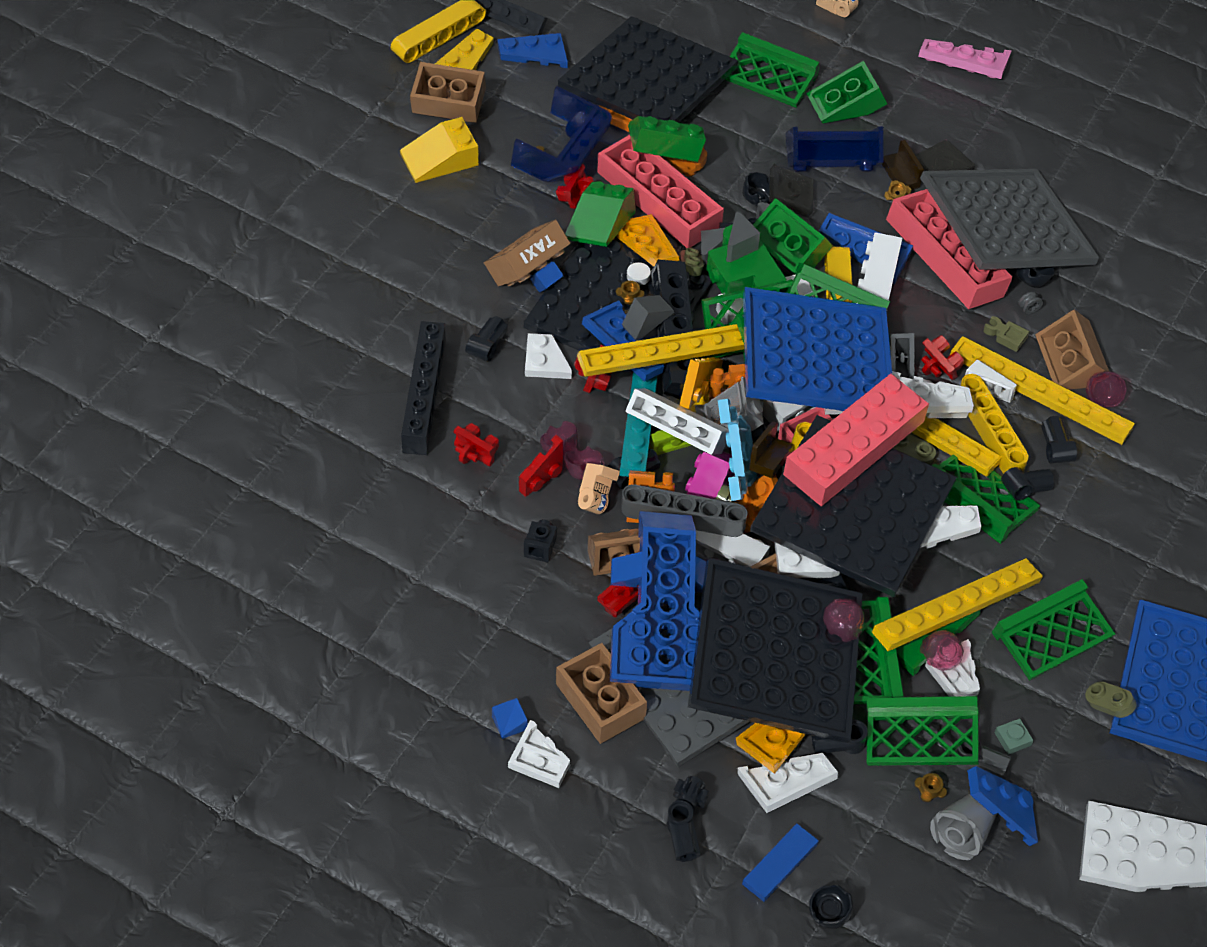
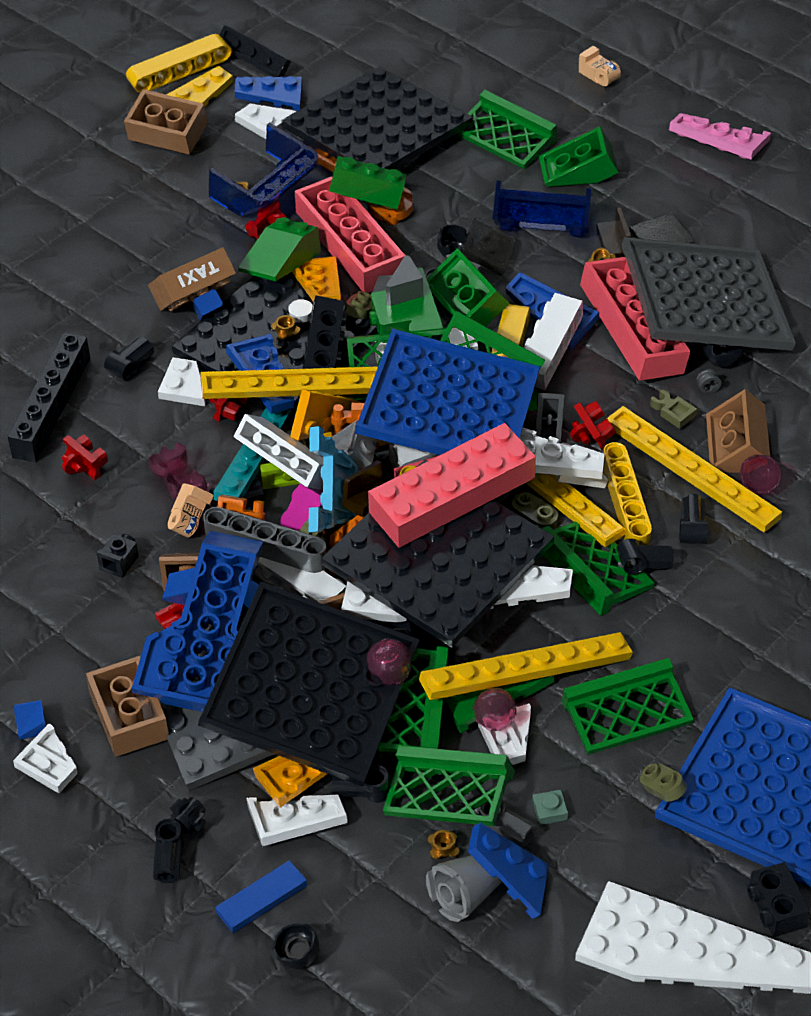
camera: 15 degrees right, 5 degrees down
(441, 151) = (143, 177): yellow slope -> none
(536, 79) = (257, 117): none -> white wing
(542, 468) = (141, 485): red wing -> none
(645, 315) = (287, 347): dark grey slope -> none
(993, 381) = (640, 453): white slope -> none

